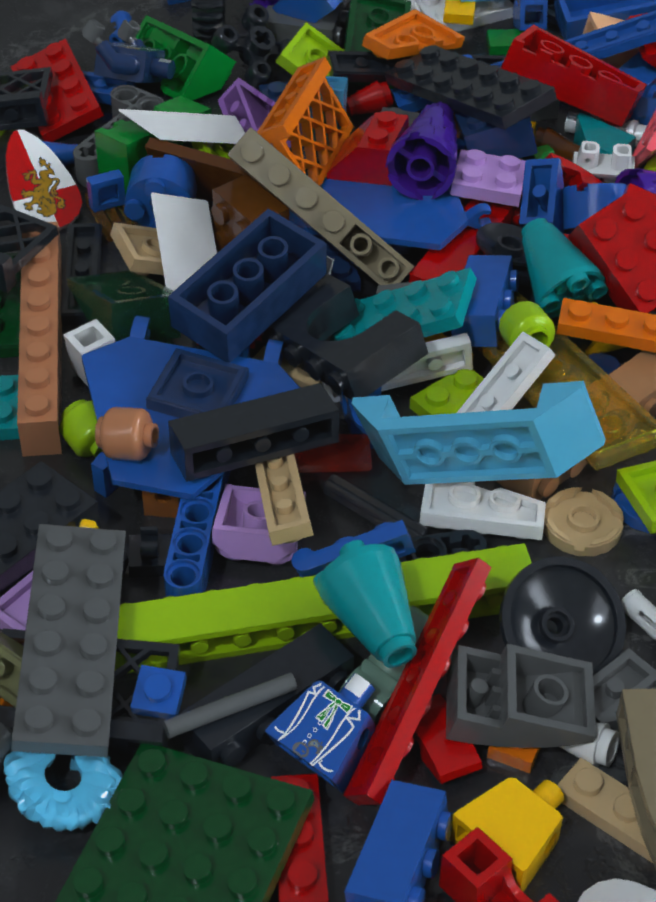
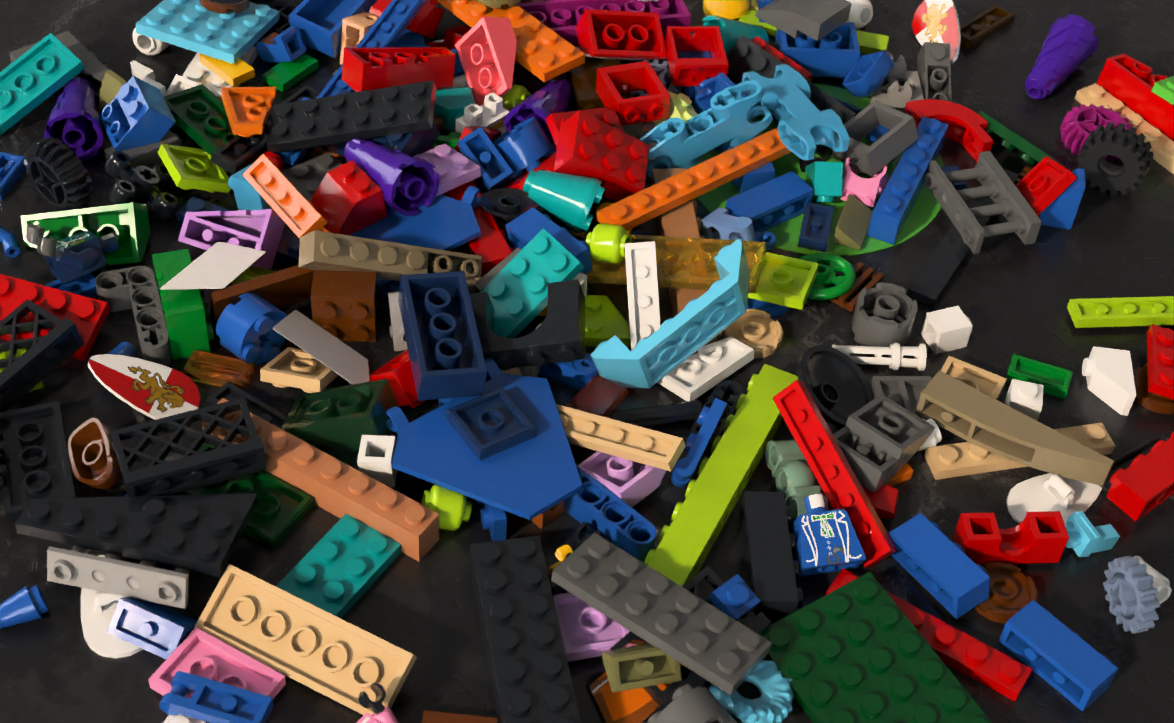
camera: 55 degrees left, 0 degrees up
(106, 190) = (209, 354): blue plate -> none
(126, 433) = (509, 480): nougat head -> none
(229, 705) = (776, 570): dark grey bar -> none
(253, 431) = (568, 419): black brick -> none
(371, 599) = (774, 451): teal cone -> none
(517, 821) = (949, 497): yellow torso -> none

